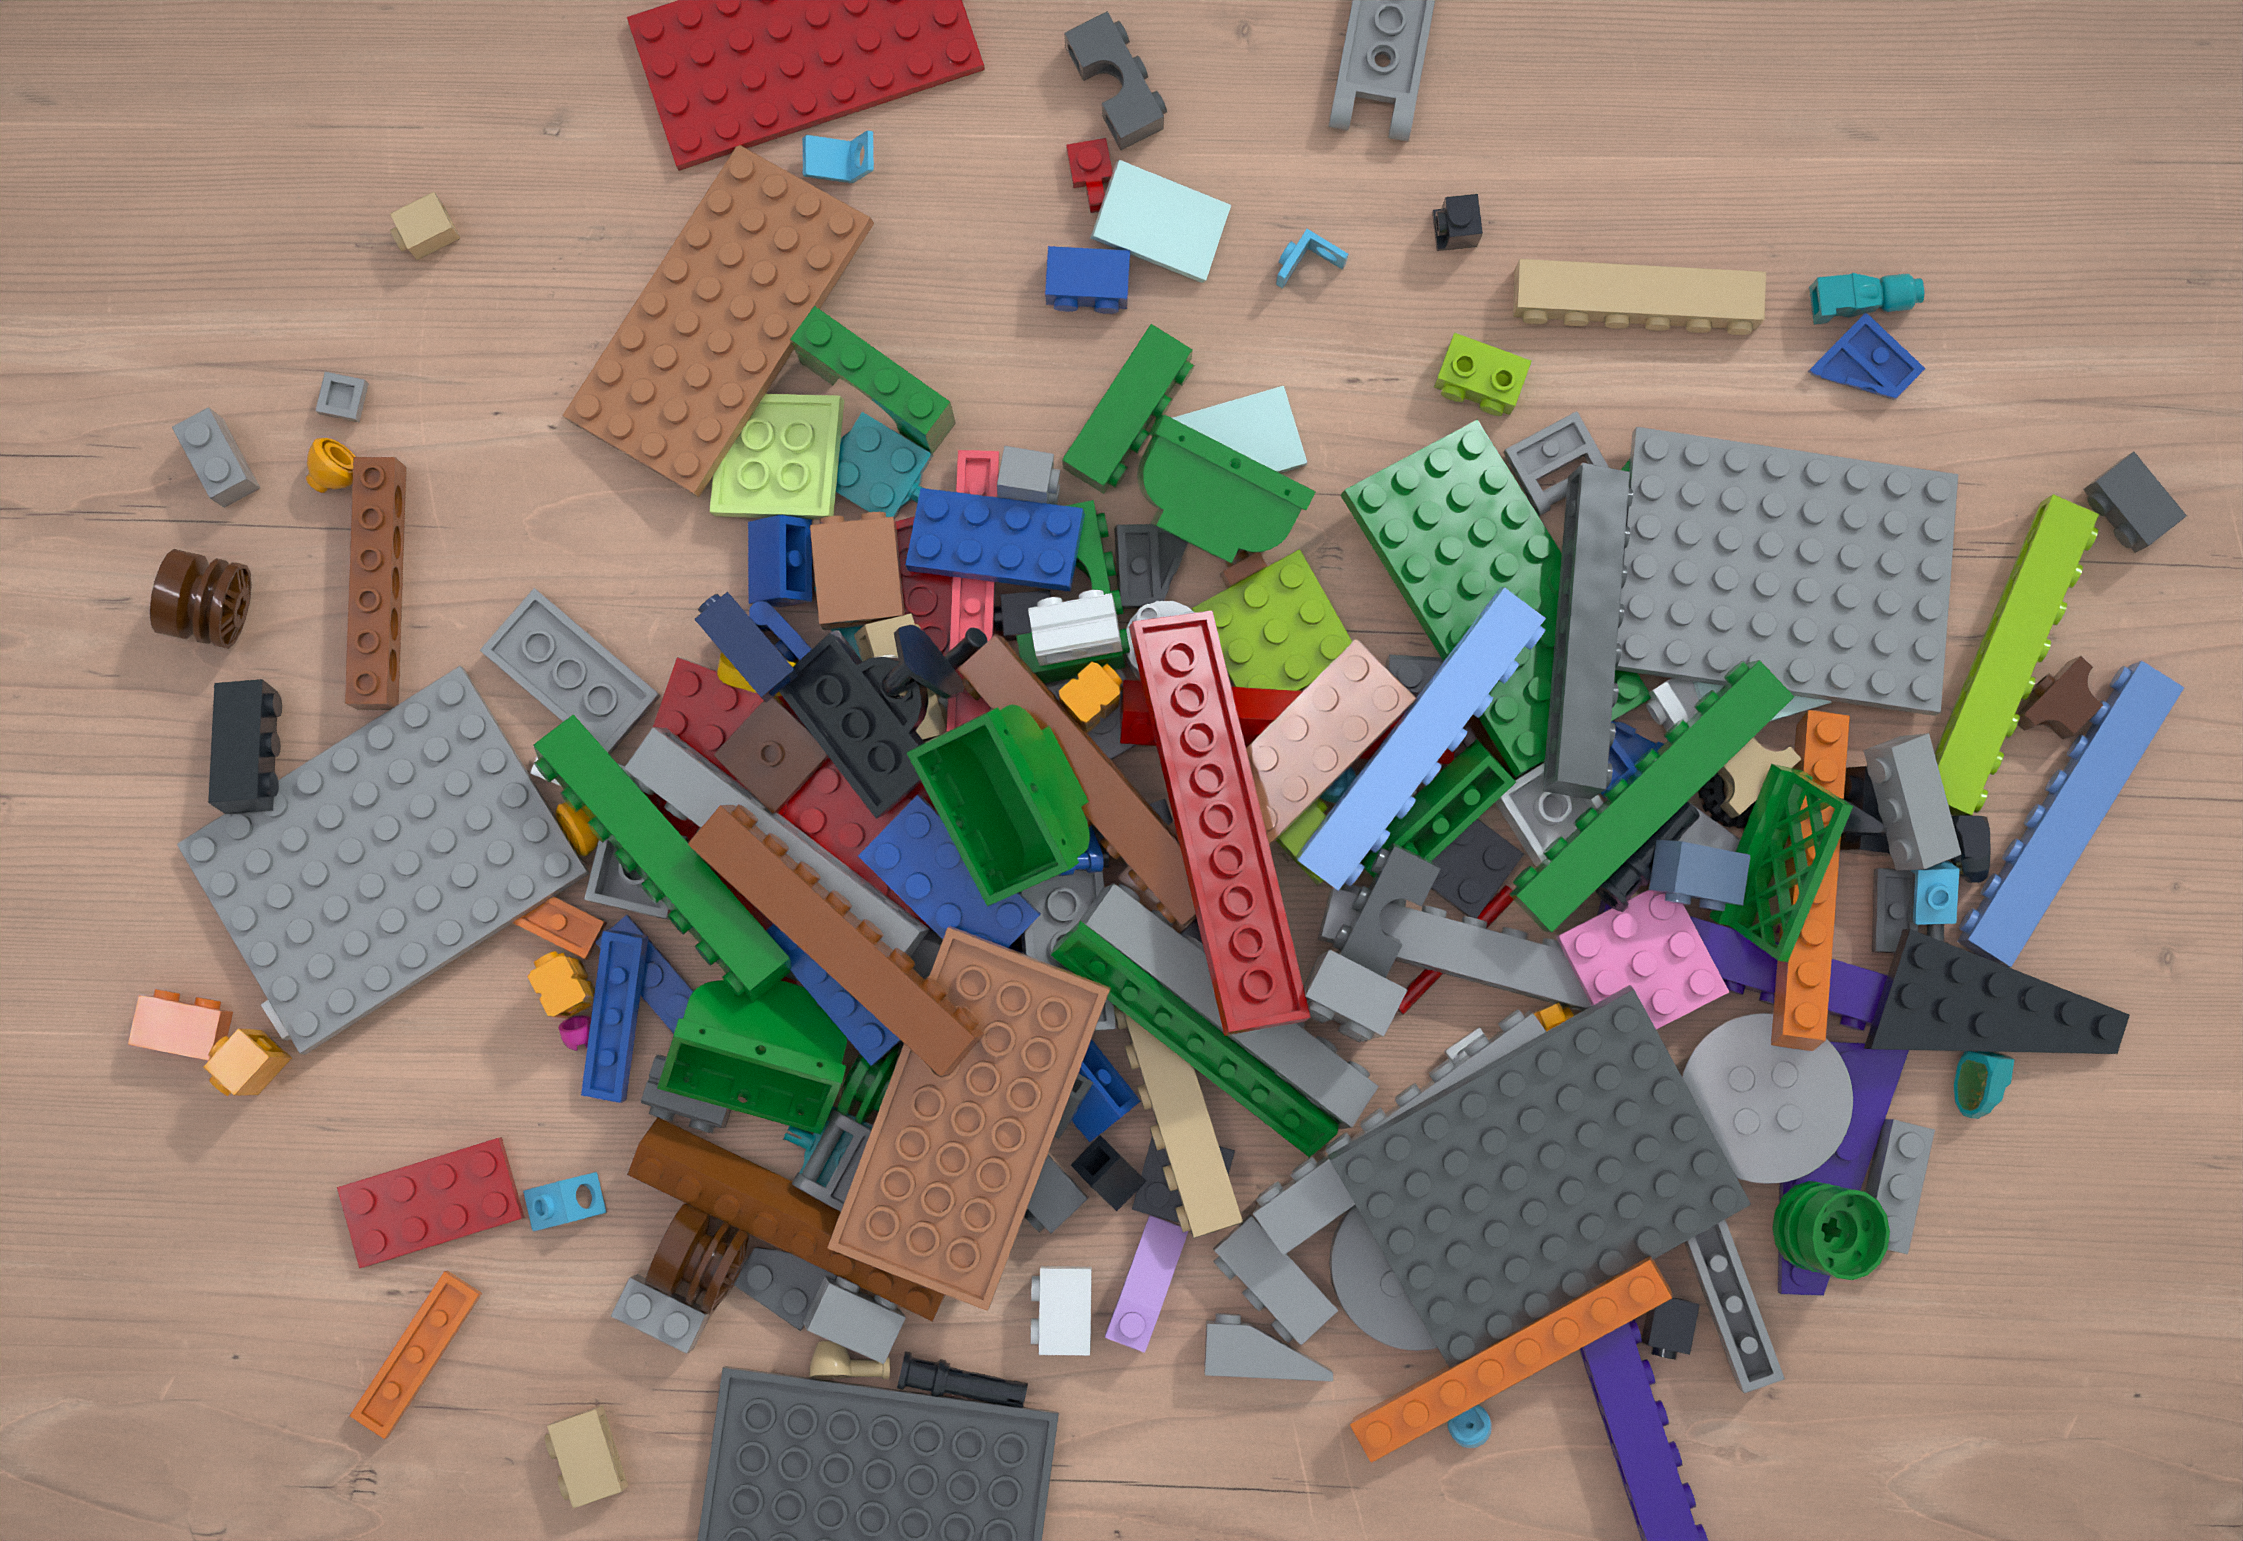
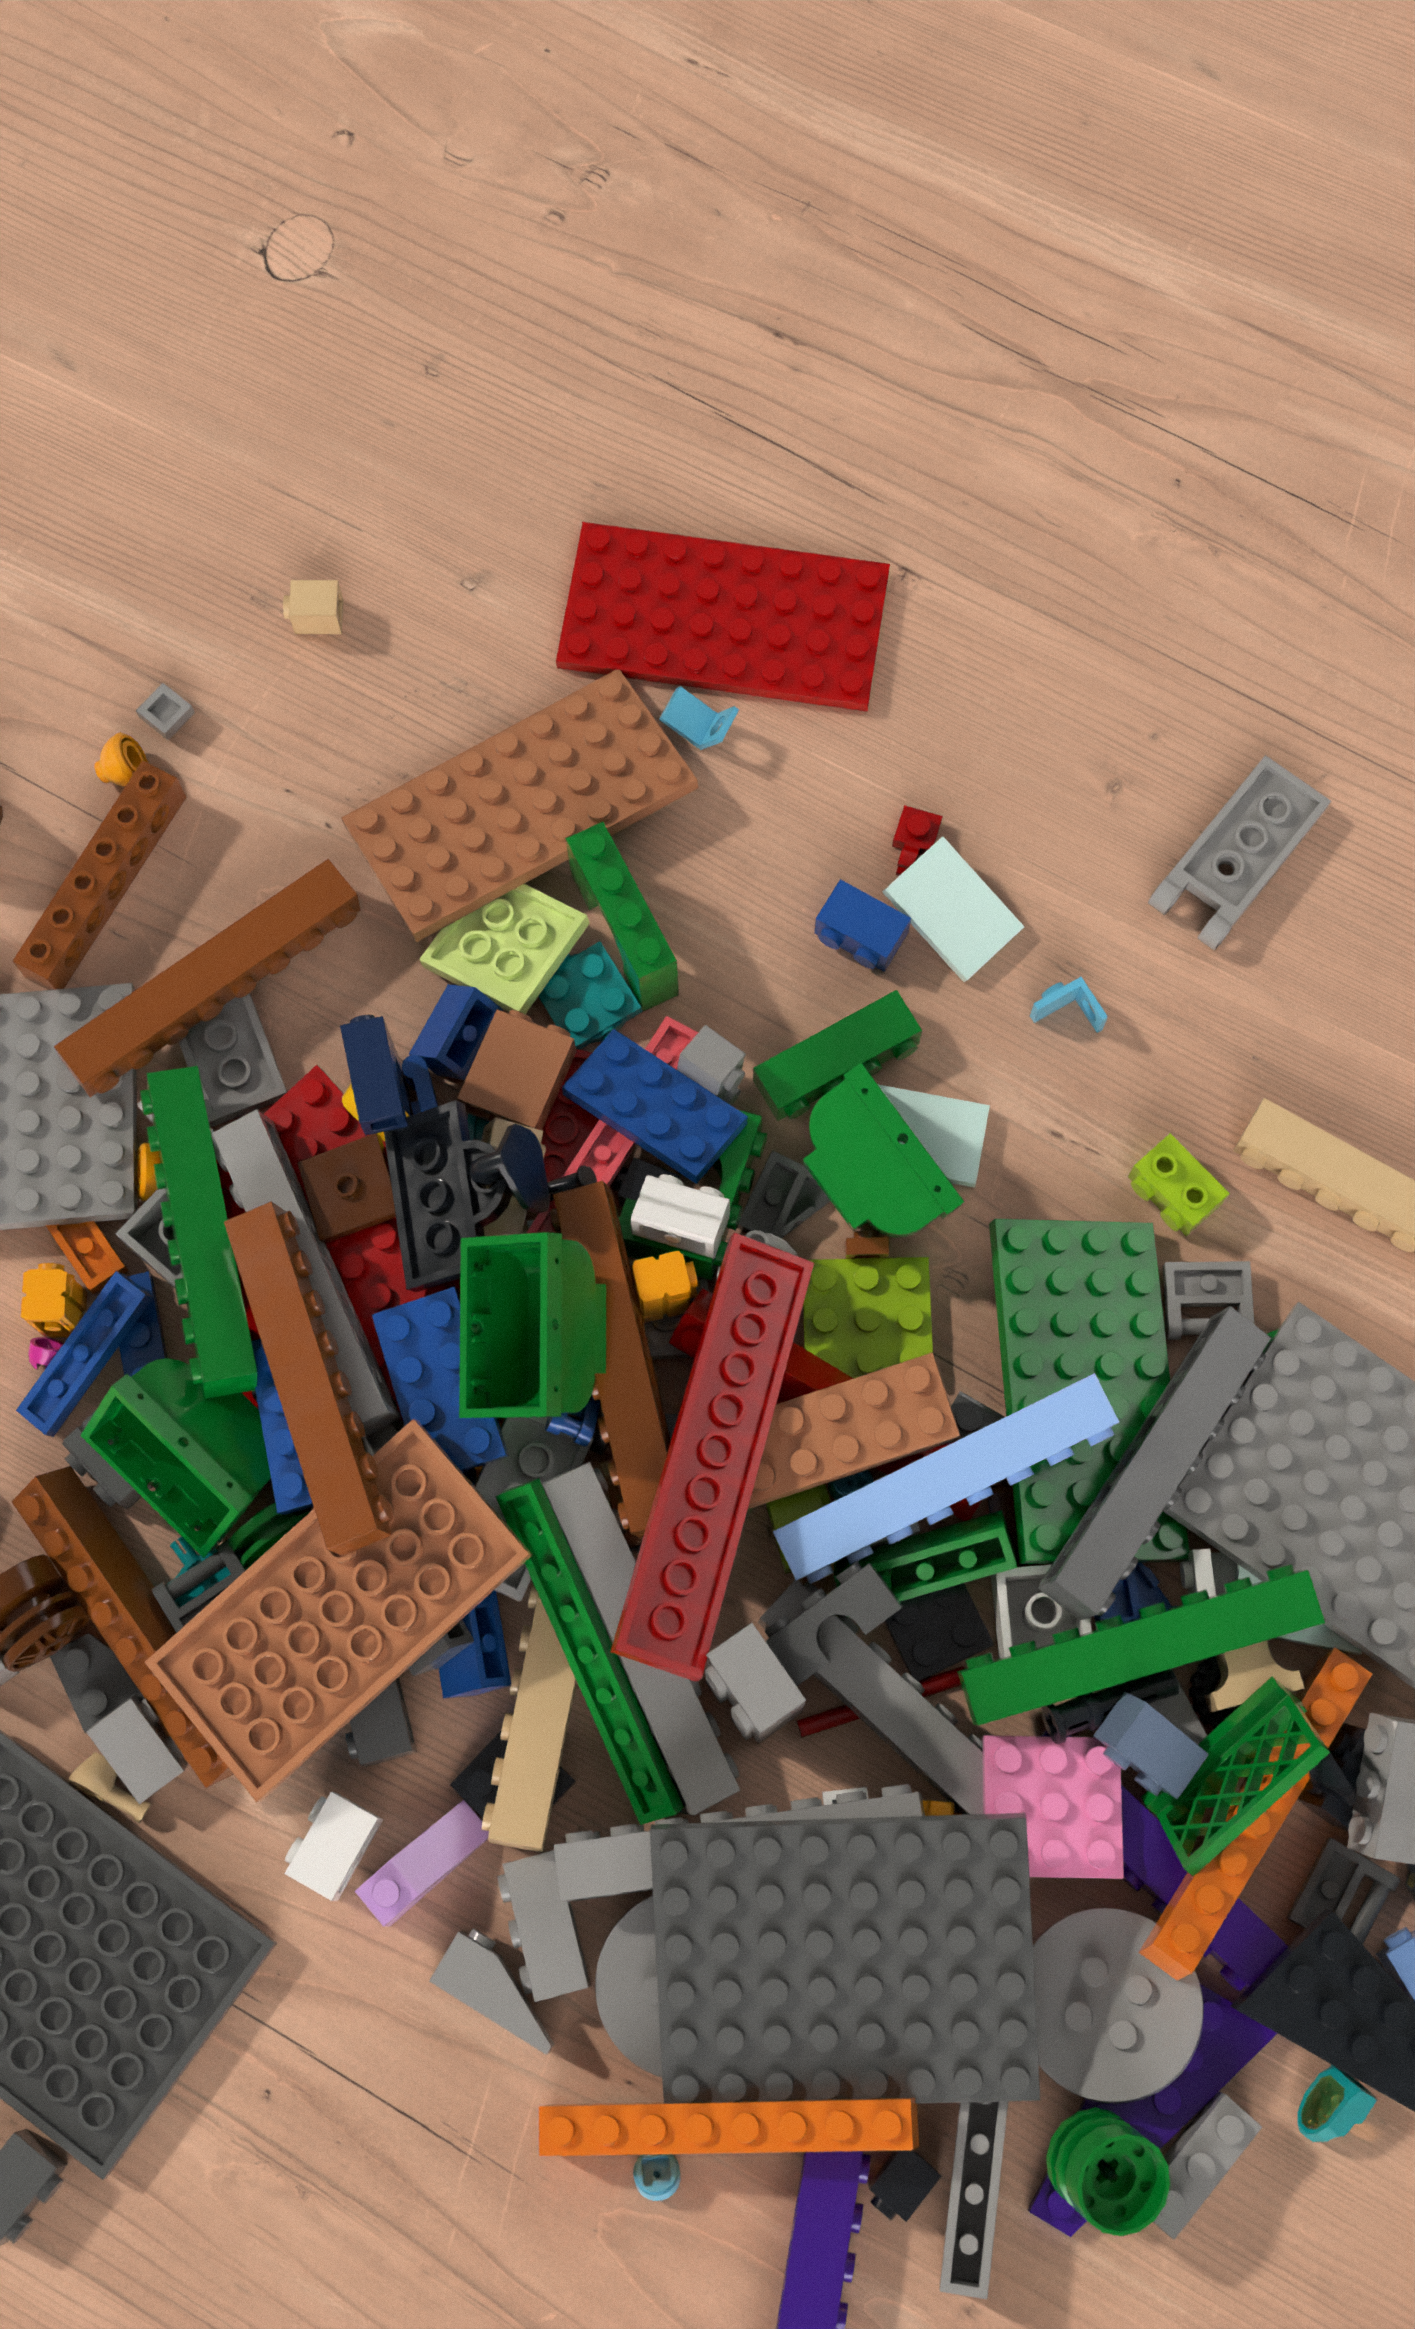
camera: 30 degrees right, 10 degrees down
(216, 457) = (31, 708): light grey brick -> none
(533, 627) = (209, 978): none -> dark orange brick
(942, 1379) = (187, 1850): black pin -> none
(1102, 49) = (977, 740): dark grey arch -> none
(1108, 1173) = (444, 1737): black brick -> none
(1458, 223) = (1223, 1041): black brick -> none
(1936, 894) = (1376, 1892): medium azure bracket -> none

